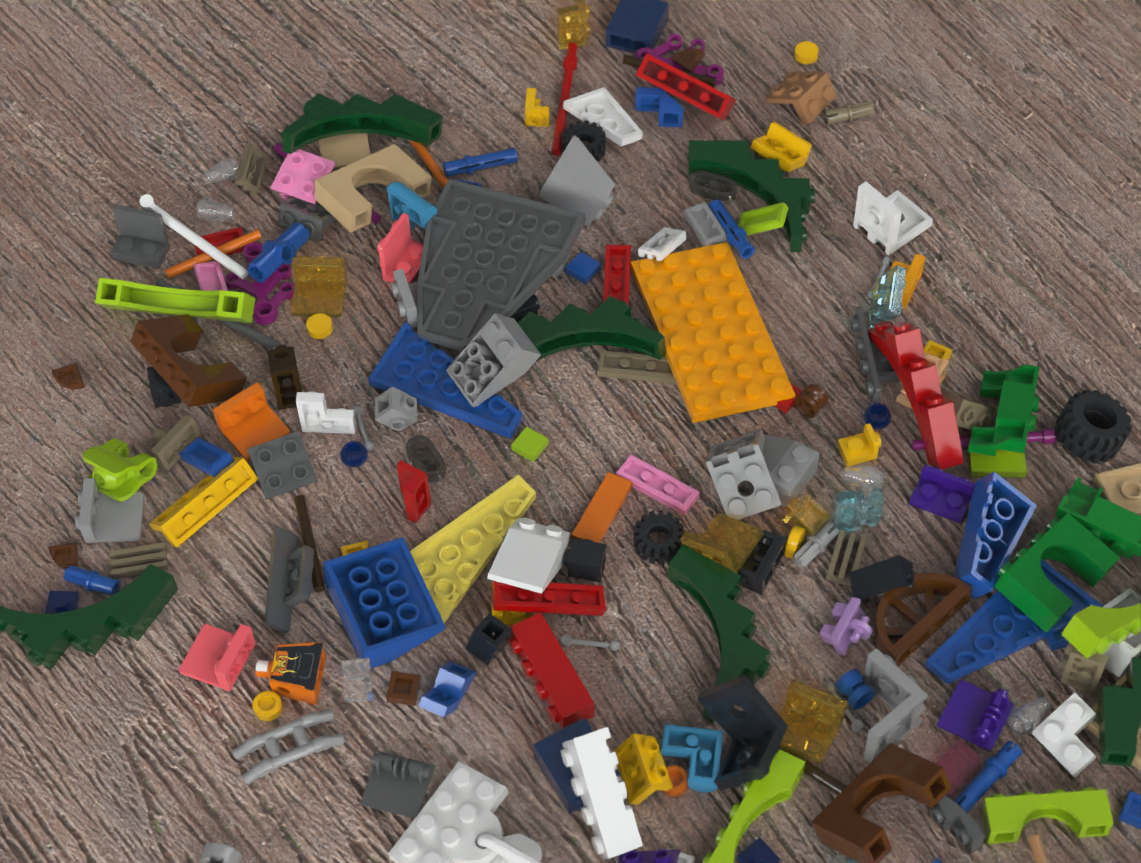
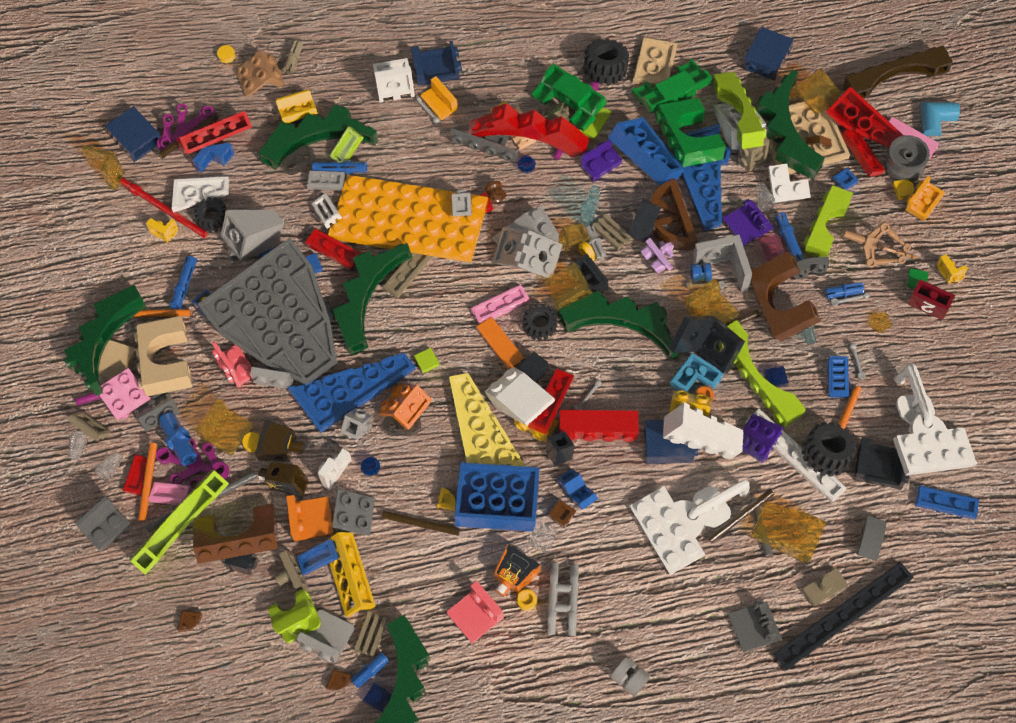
camera: 60 degrees left, 10 degrees up
(148, 204) = (87, 501): white bar -> none
(288, 578) = (444, 544): dark grey bracket -> none
(329, 347) = (277, 443): none -> dark brown torso
(358, 414) = (336, 449): light grey hinge -> none
(397, 784) = (625, 547): dark grey hinge -> none
(406, 201) = (197, 340): dark azure brick -> none
(415, 490) = (426, 437): red panel -> none
(449, 447) = (405, 404): none -> orange bracket
(493, 359) = (361, 348): light grey slope -> none
(688, 58) = (188, 119): reddish brown tile -> none
(758, 365) = (461, 203): none -> light grey bracket
(860, 447) = (541, 184): yellow bracket -> none
(865, 476) = (565, 192): clear cone -> none
(887, 296) = (453, 108): clear light blue plate -> none
(948, 253) = (436, 63): none -> dark blue panel

